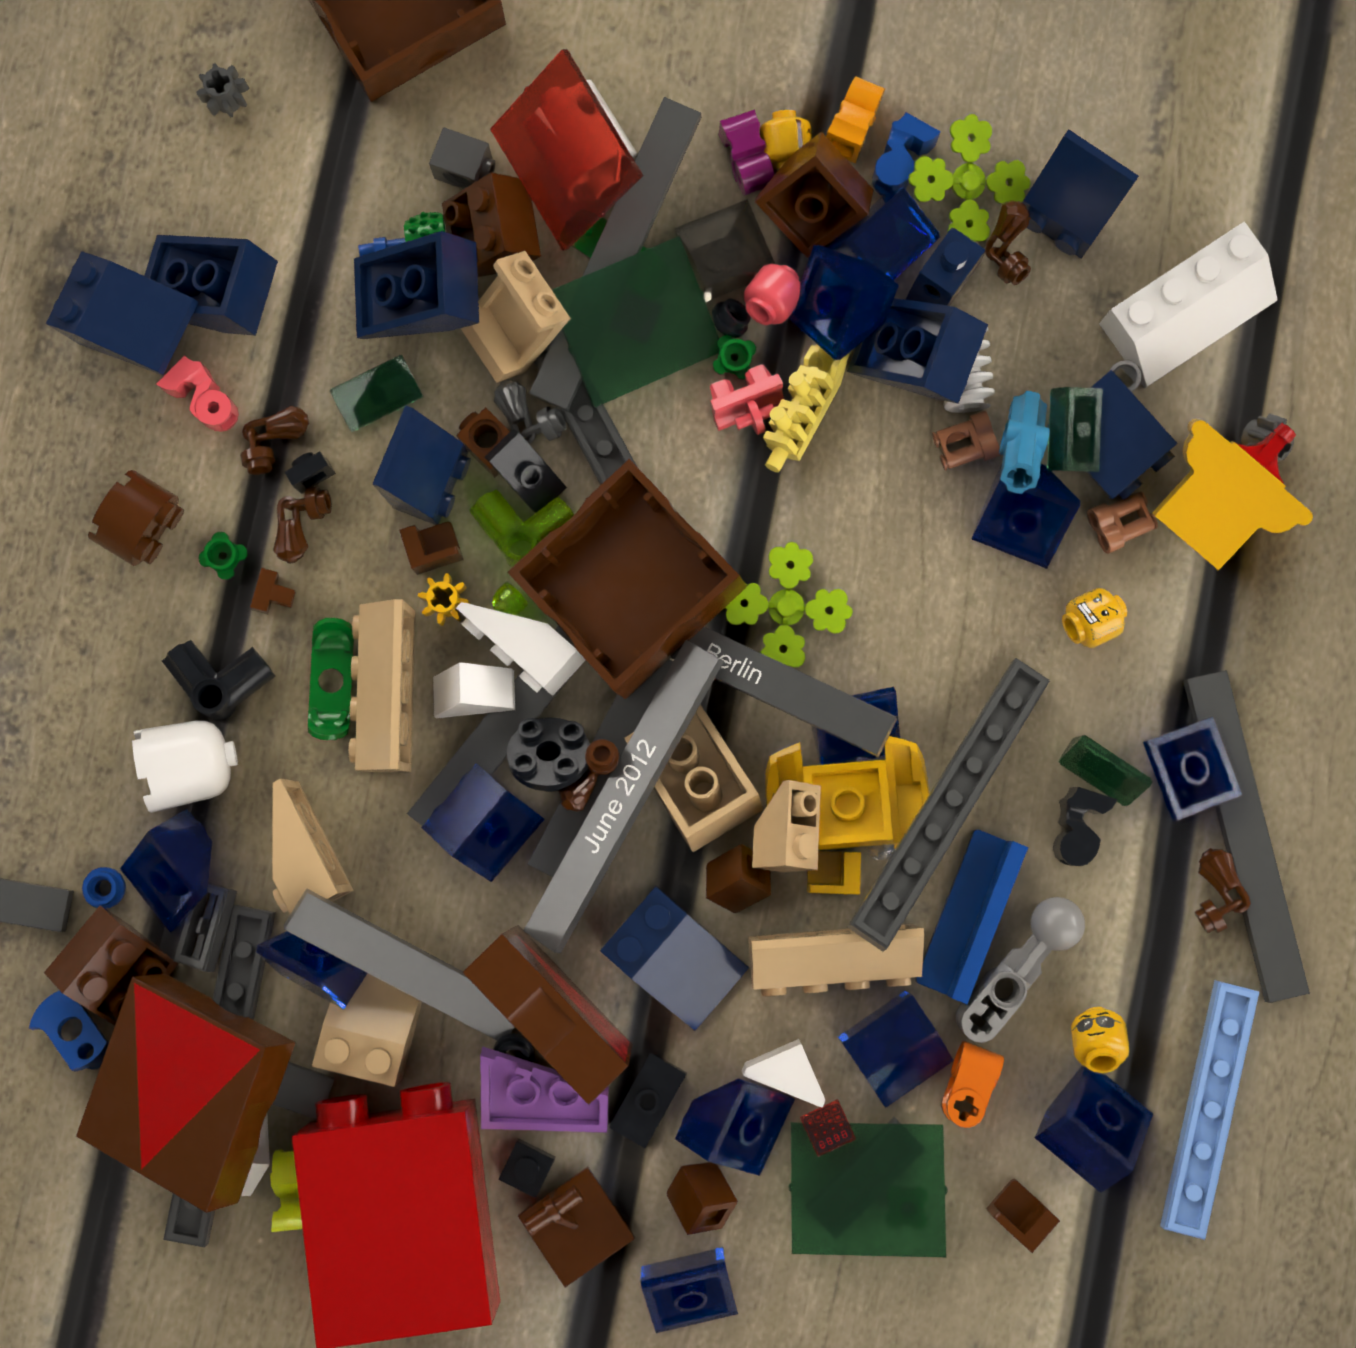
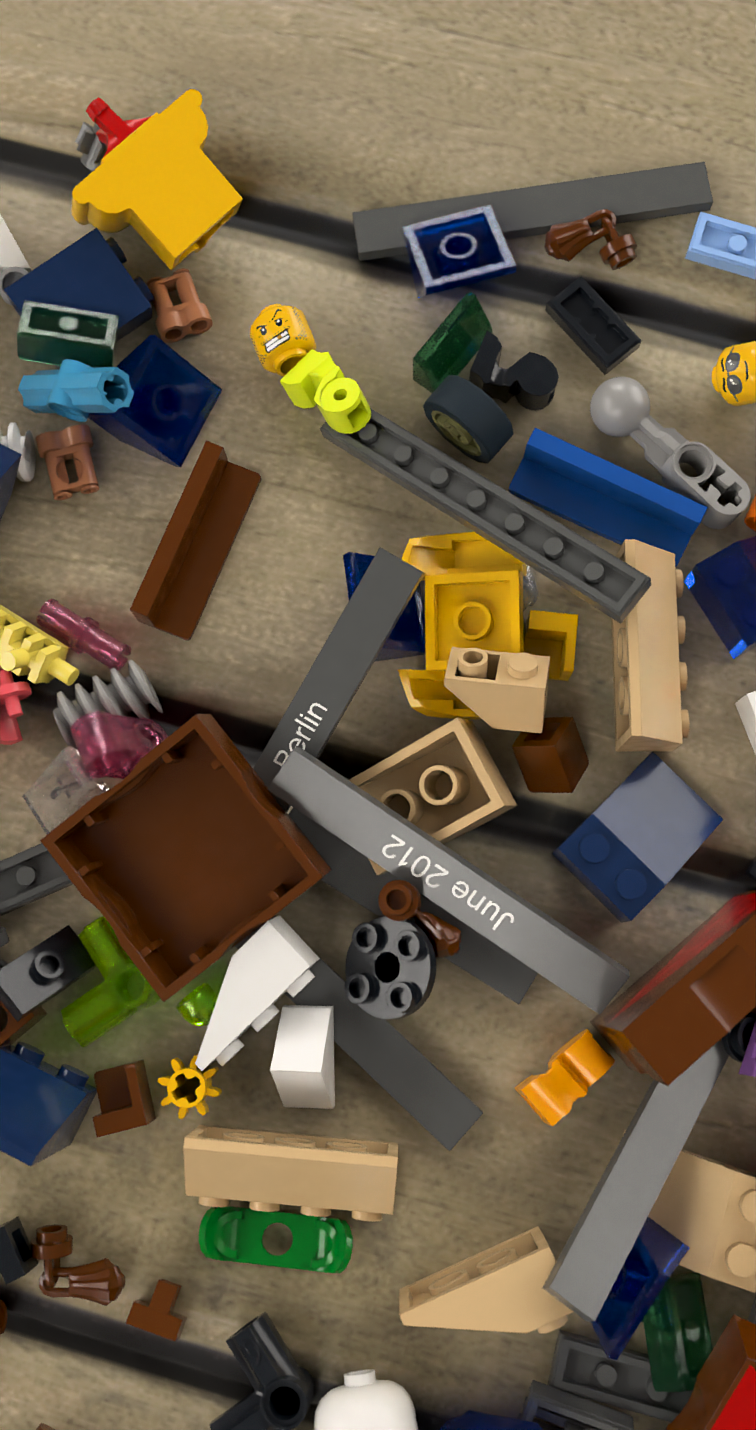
camera: 80 degrees left, 5 degrees down
(211, 555) = (94, 1384): green plate -> none
(279, 1005) = (678, 1334): none -> clear green slope
(471, 906) = (568, 1076): none -> light orange leg
(482, 823) = (467, 1057): clear blue slope -> none
(676, 472) = (62, 790): none -> clear slope
(716, 512) = (114, 743): none -> clear pink piece
(750, 497) = (118, 698): none -> light grey piece
(788, 606) = (238, 674): lime plant -> none
(811, 472) = (83, 634): none -> clear pink pin
(902, 560) = (195, 544): none -> reddish brown panel
(1031, 788) = (468, 418): none -> black wheel
(1055, 656) = (322, 383): none -> neon yellow leg
(1136, 896) = (593, 325): none -> black plate

